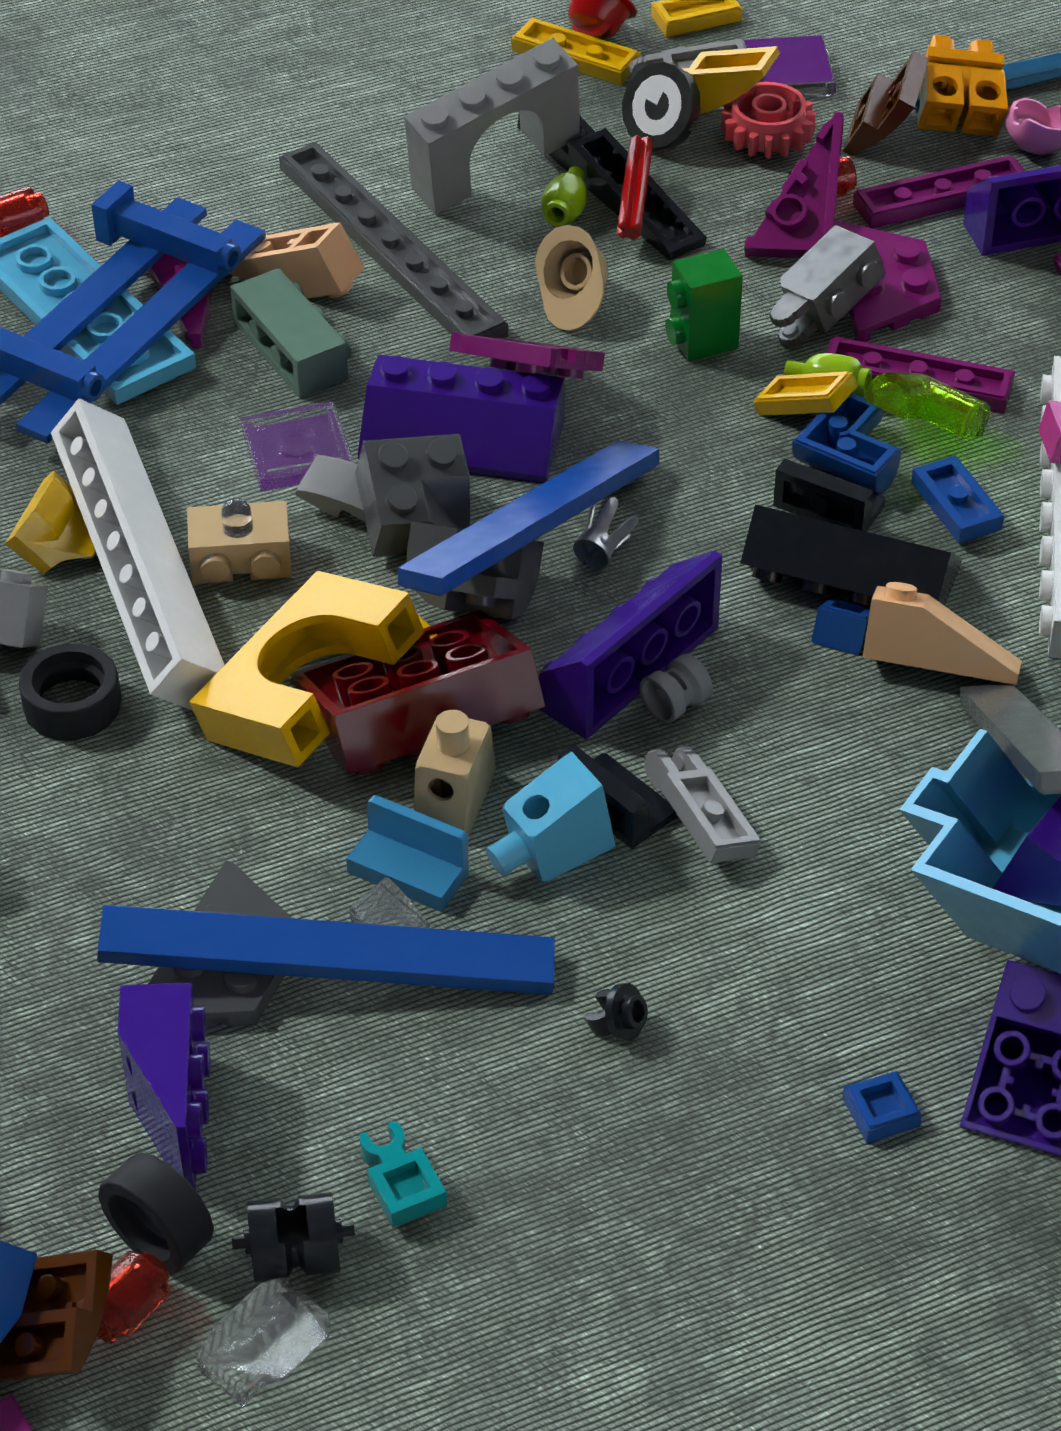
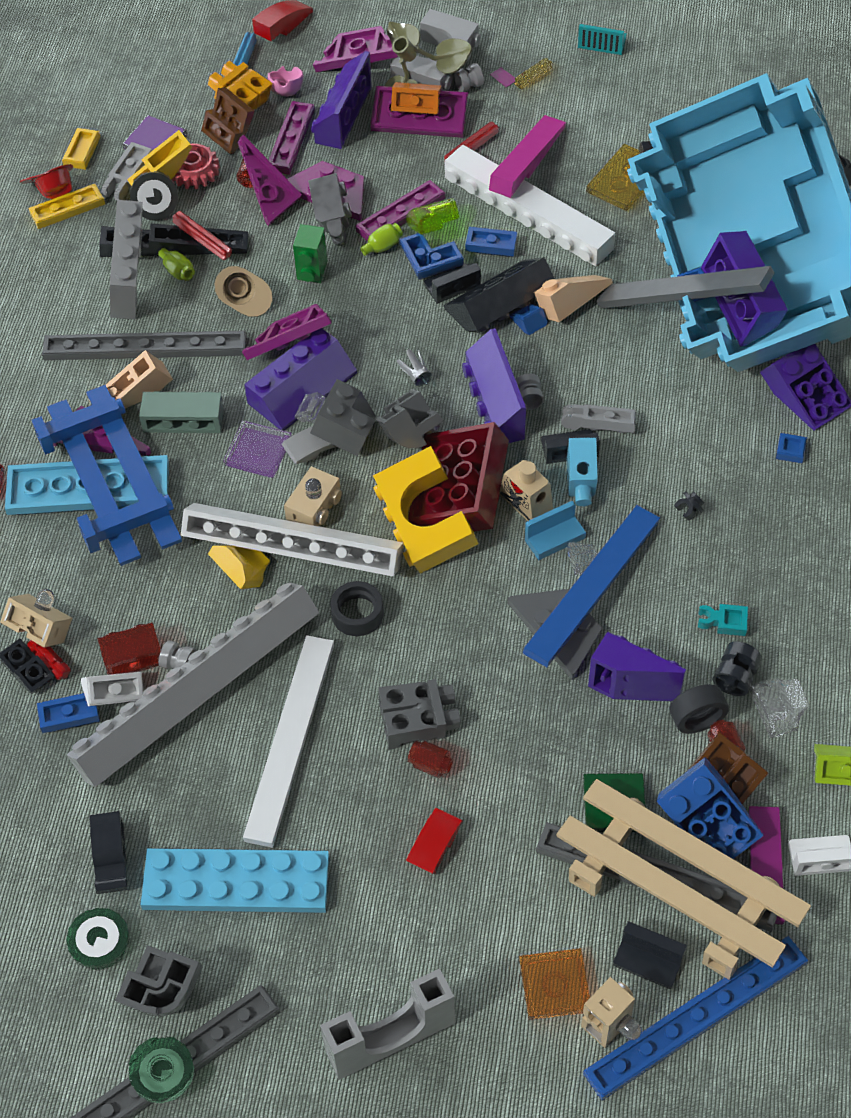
camera: 55 degrees left, 10 degrees up
(526, 518) = (407, 383): blue tile -> none
(805, 393) = (389, 253): yellow tile -> none

